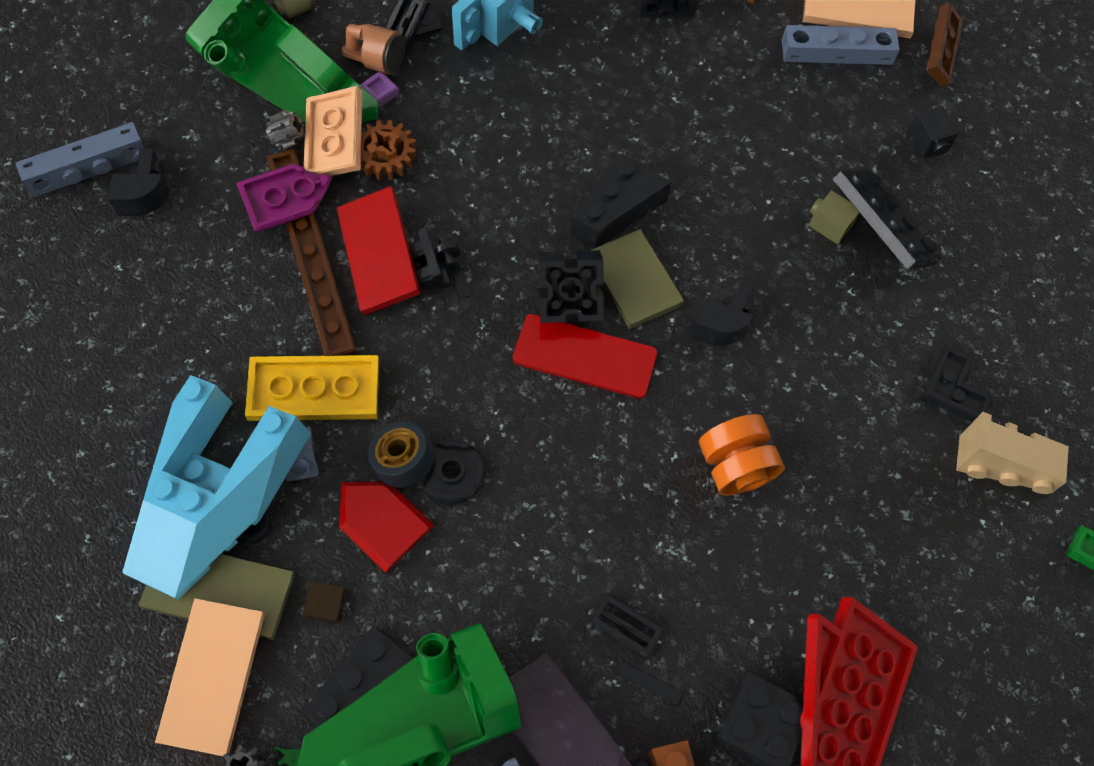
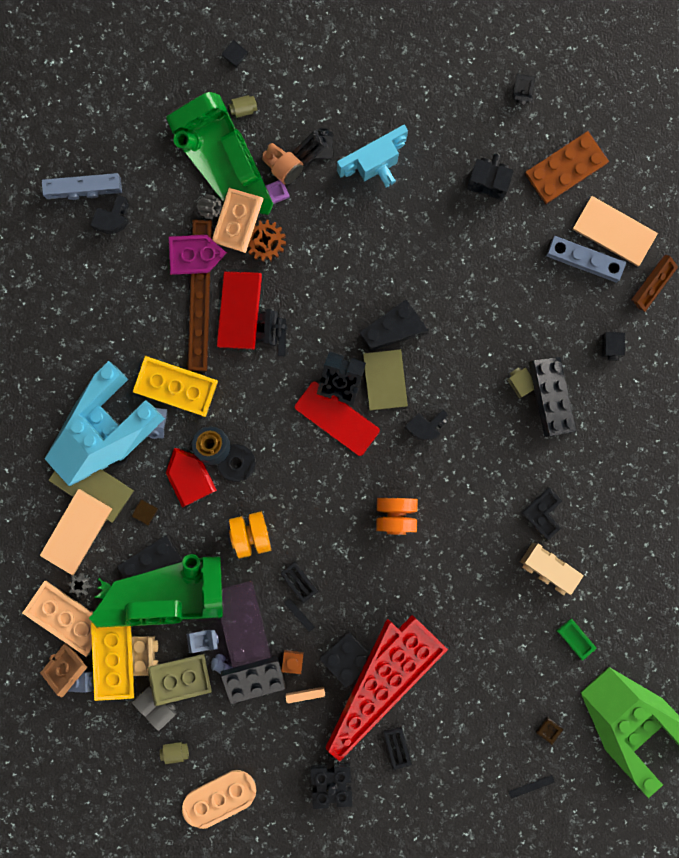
camera: 20 degrees right, 20 degrees up
(525, 564) = (244, 536): none -> light orange wheel

